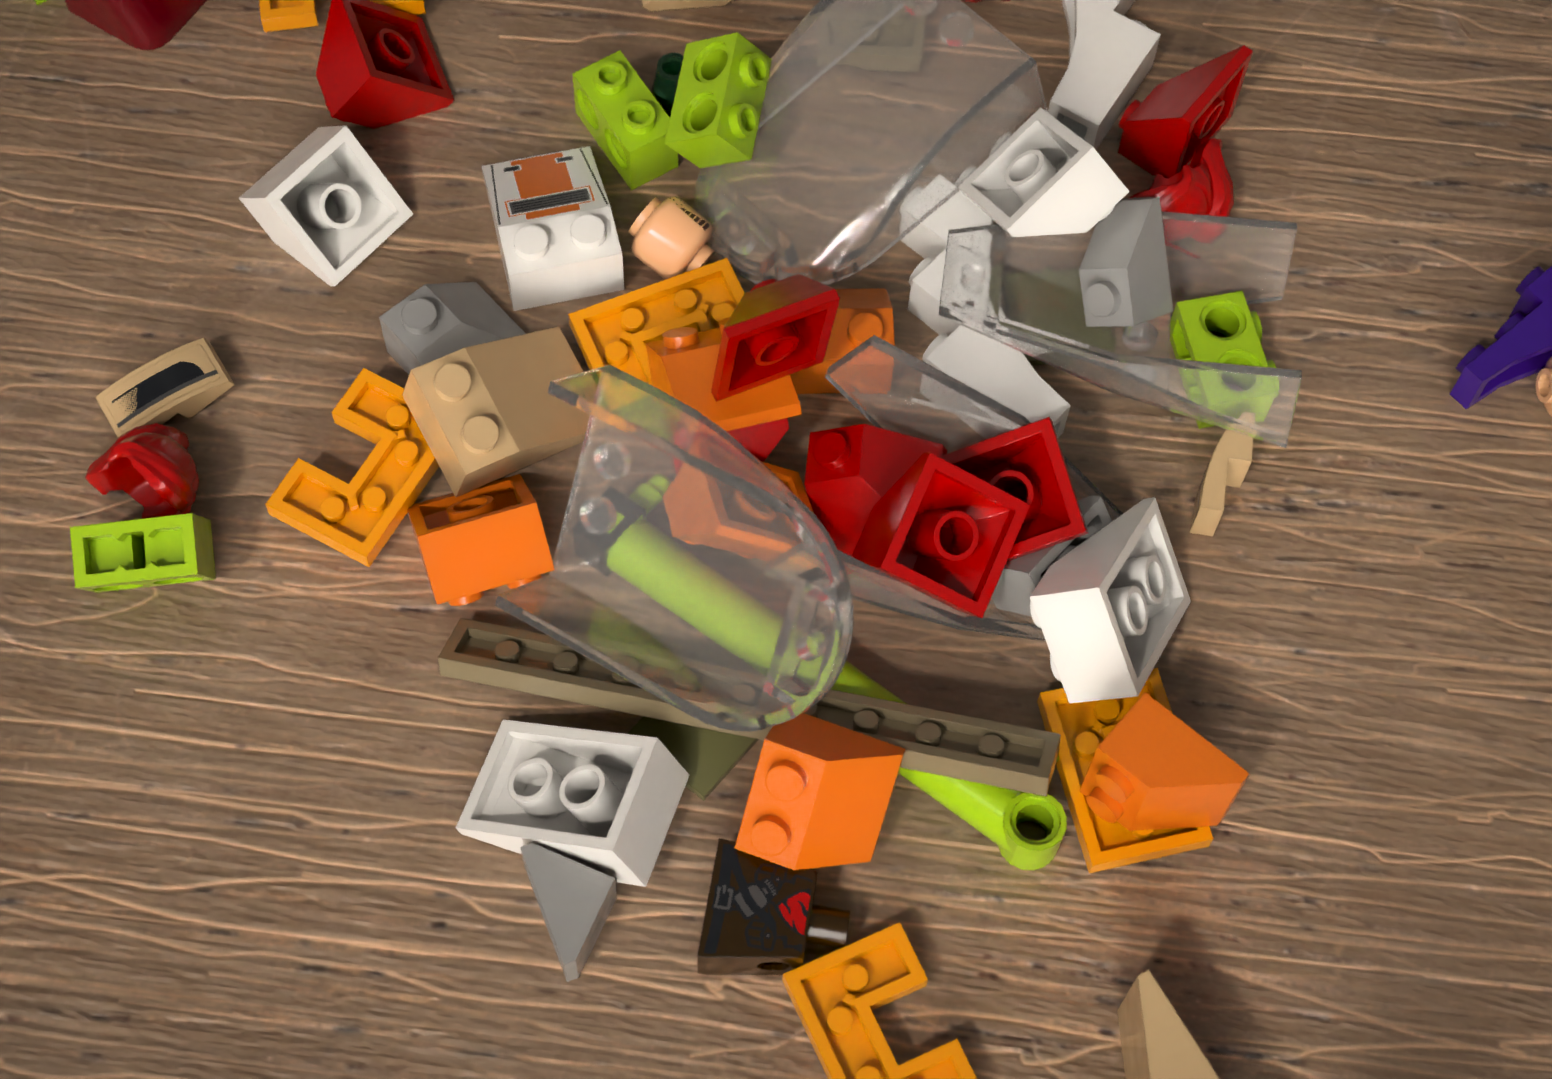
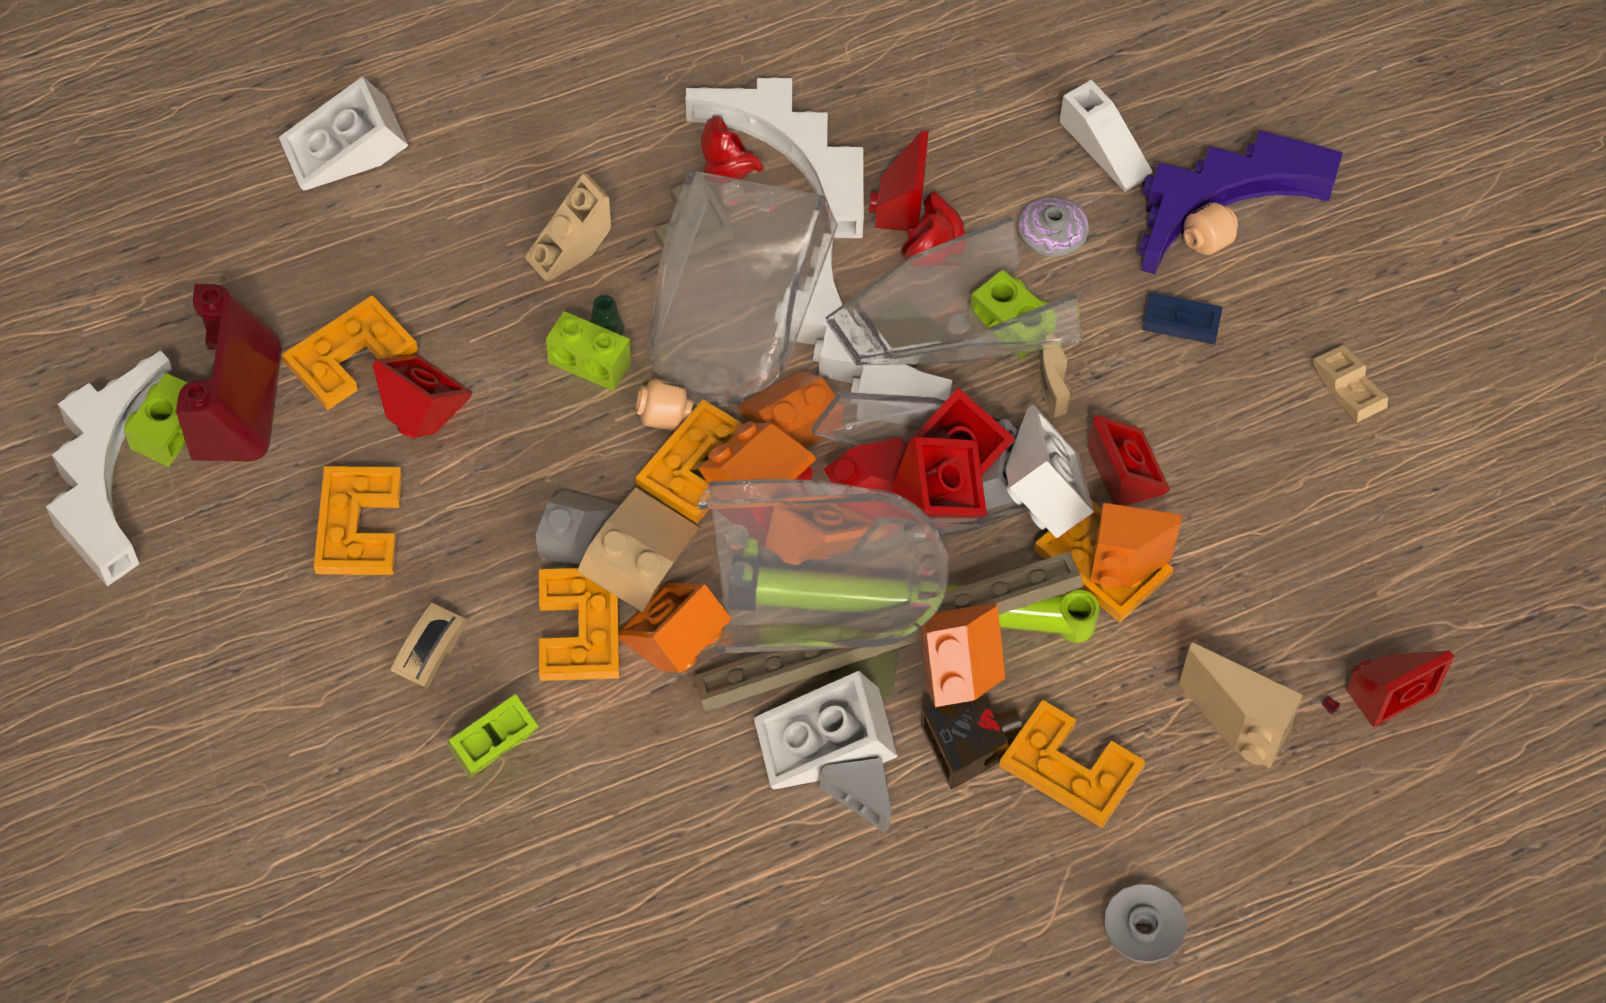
camera: 30 degrees left, 5 degrees down
(150, 467) = (459, 692): red hair -> none
(154, 201) = (338, 540): none -> light orange plate
(327, 204) = (445, 489): white slope -> none
(554, 228) = (588, 433): white slope -> none
(718, 101) = (640, 312): lime brick -> none
(774, 333) = (780, 418): red slope -> none
(1044, 181) = (863, 261): white slope -> none
(1126, 266) = (935, 286): light grey slope -> none
(1248, 649) = (1125, 462): none -> red slope
(1358, 288) = (1050, 236): none -> dish
(1462, 490) = (1182, 318): none -> dark blue plate
(1511, 181) = (1104, 135): none -> white slope

